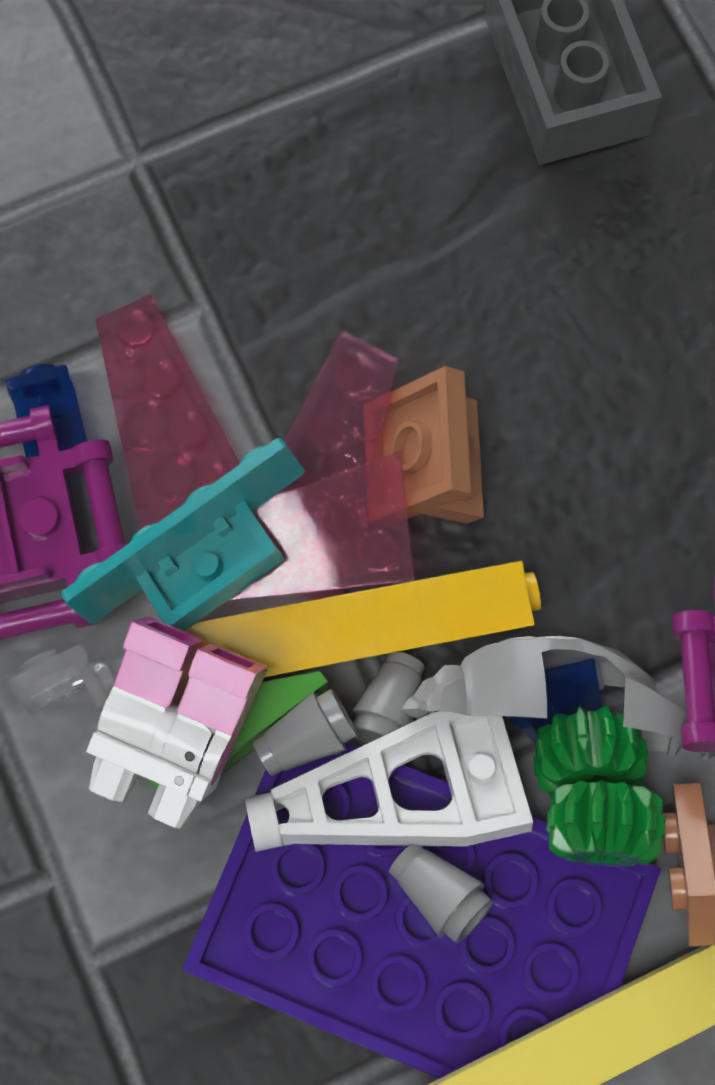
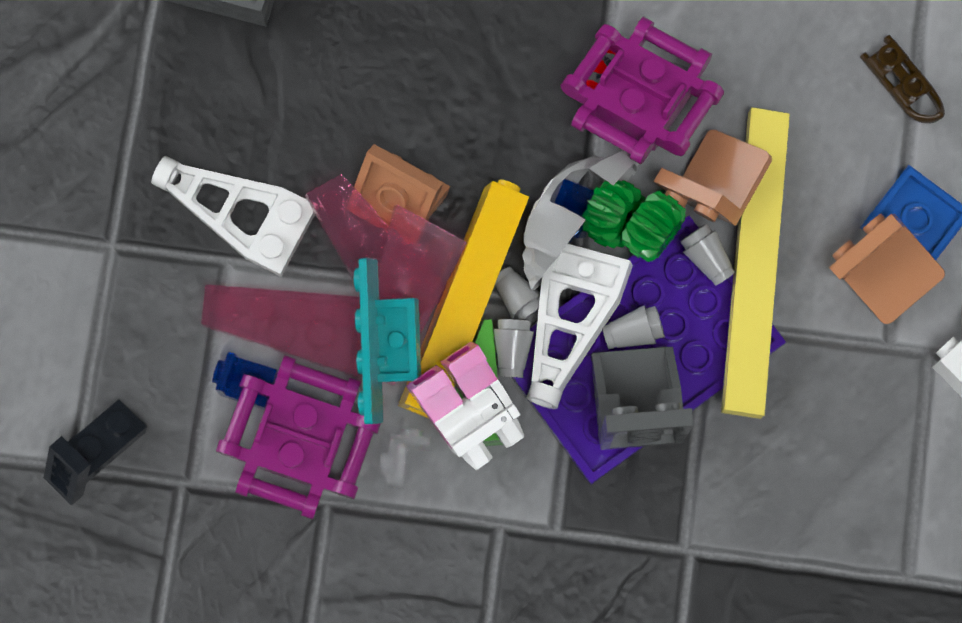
camera: 55 degrees left, 5 degrees up
(283, 342) = (280, 231): none -> white plate
(335, 960) = (639, 398): none -> dark grey bracket
(620, 932) = (708, 254): none -> light grey cone

